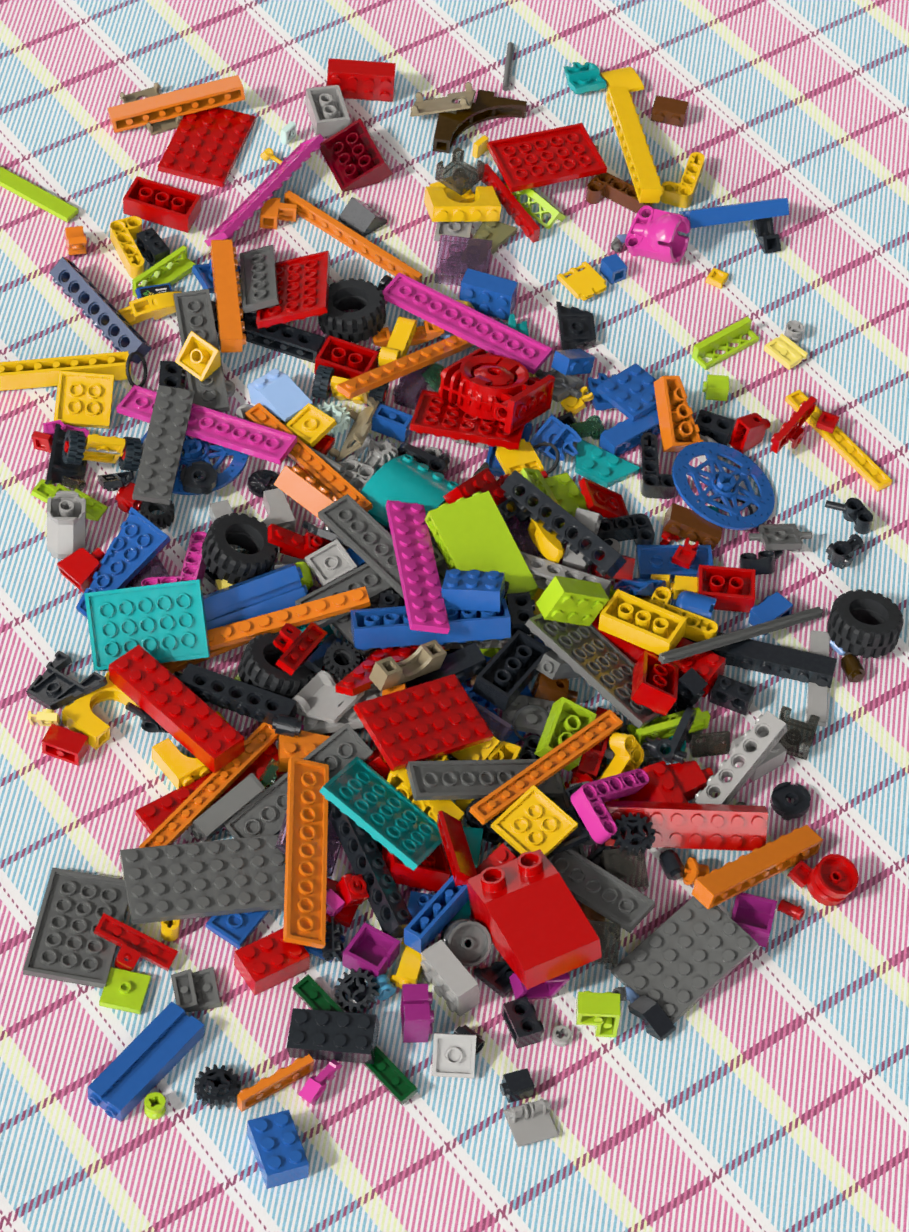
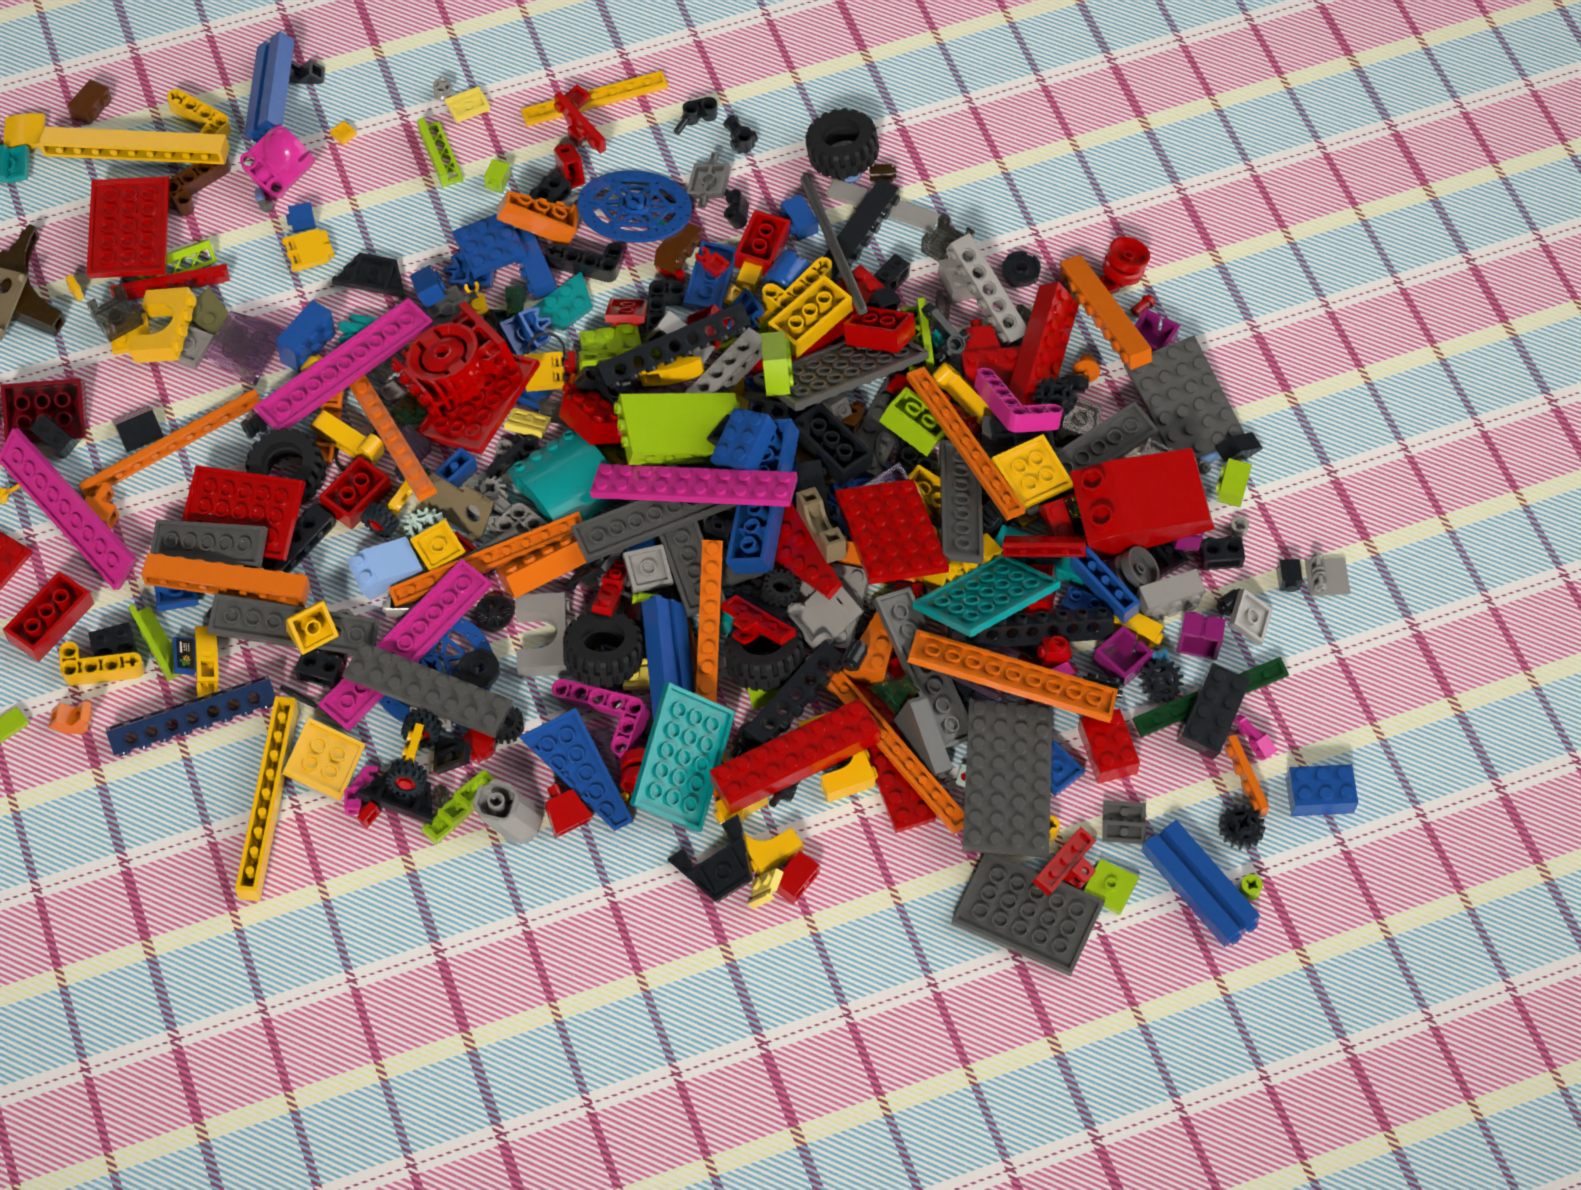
camera: 70 degrees left, 10 degrees up
(330, 166) = (54, 435): none -> black brick
(462, 462) = (527, 423): none -> light yellow plate

